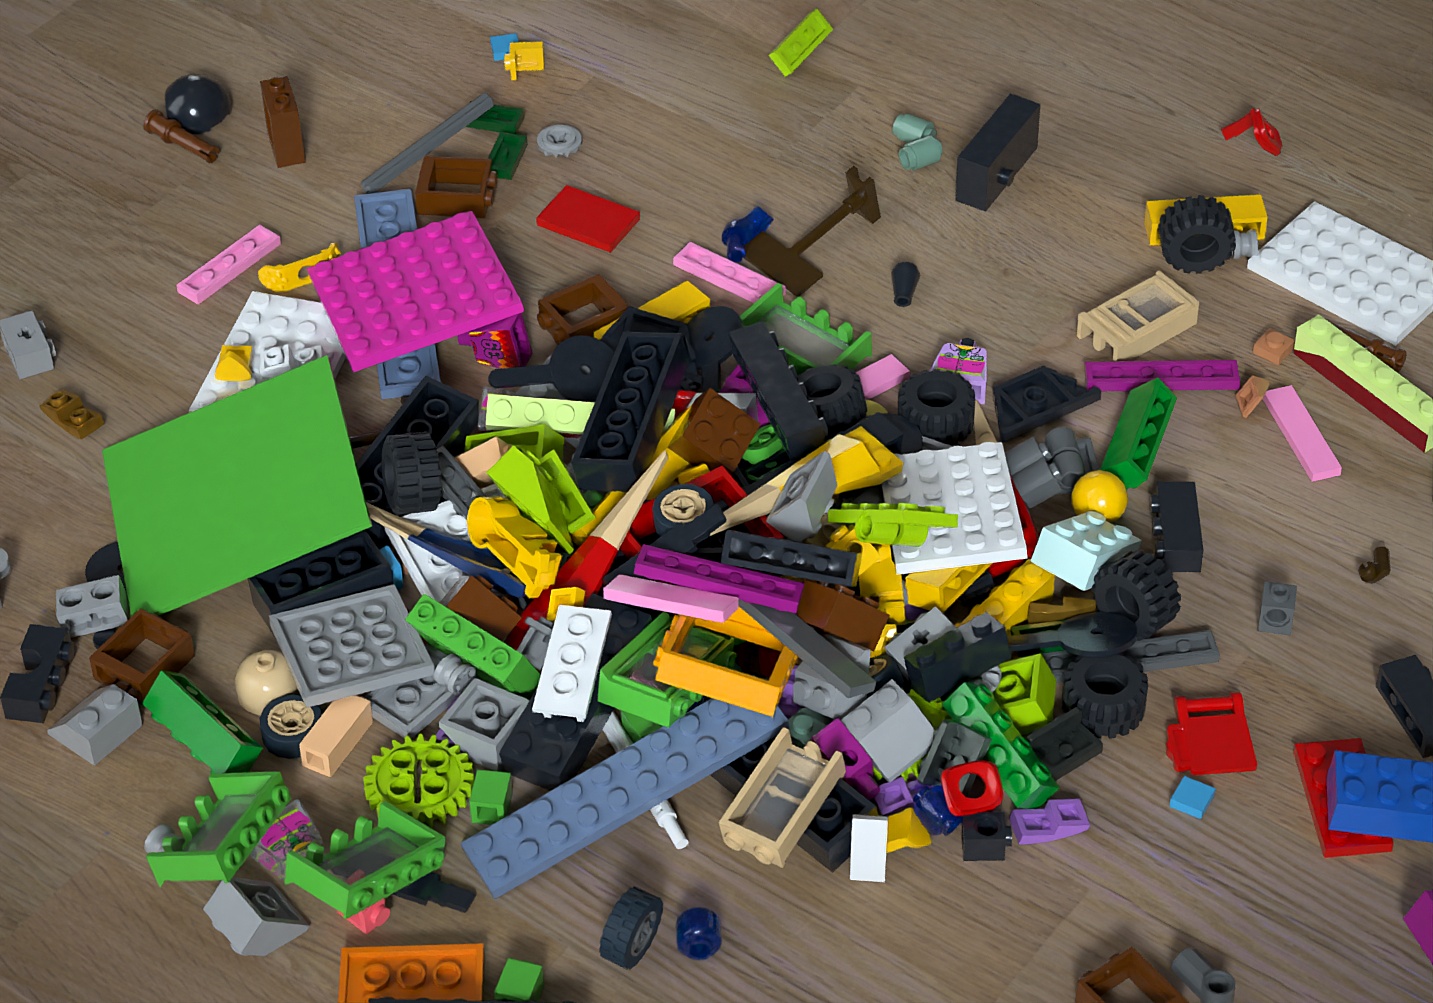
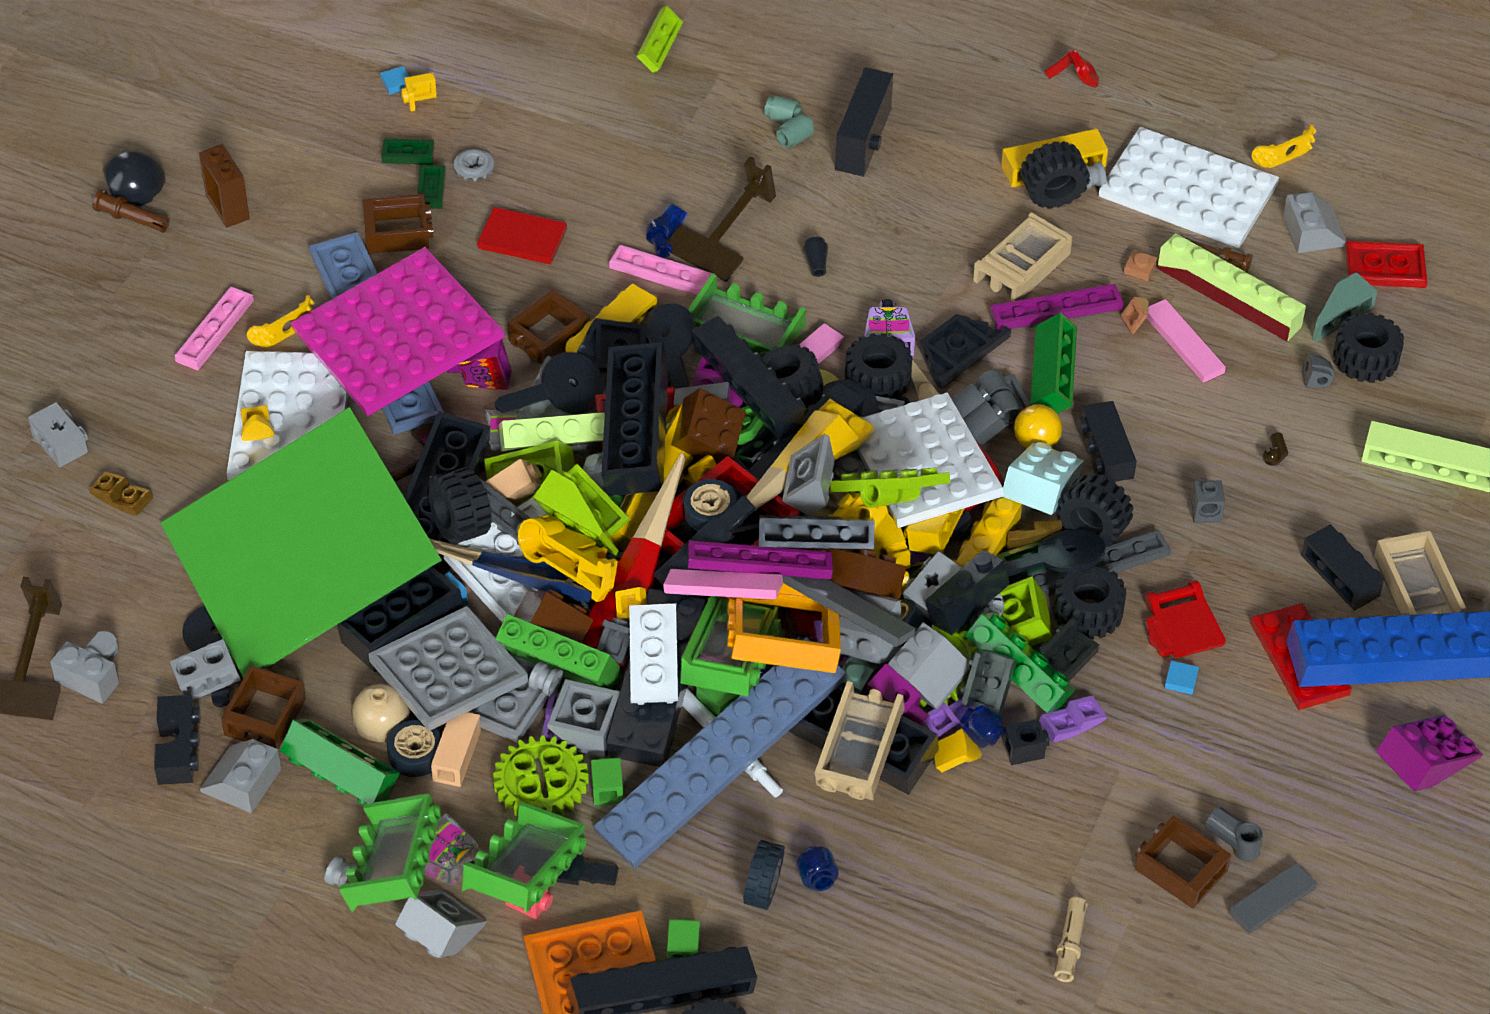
camera: 15 degrees left, 5 degrees up
(282, 359) = (303, 417): white slope -> none
(427, 144) = (358, 186): dark grey axle -> none
(868, 848) = (938, 770): white slope -> none
(961, 805) = (1002, 719): red piece -> none

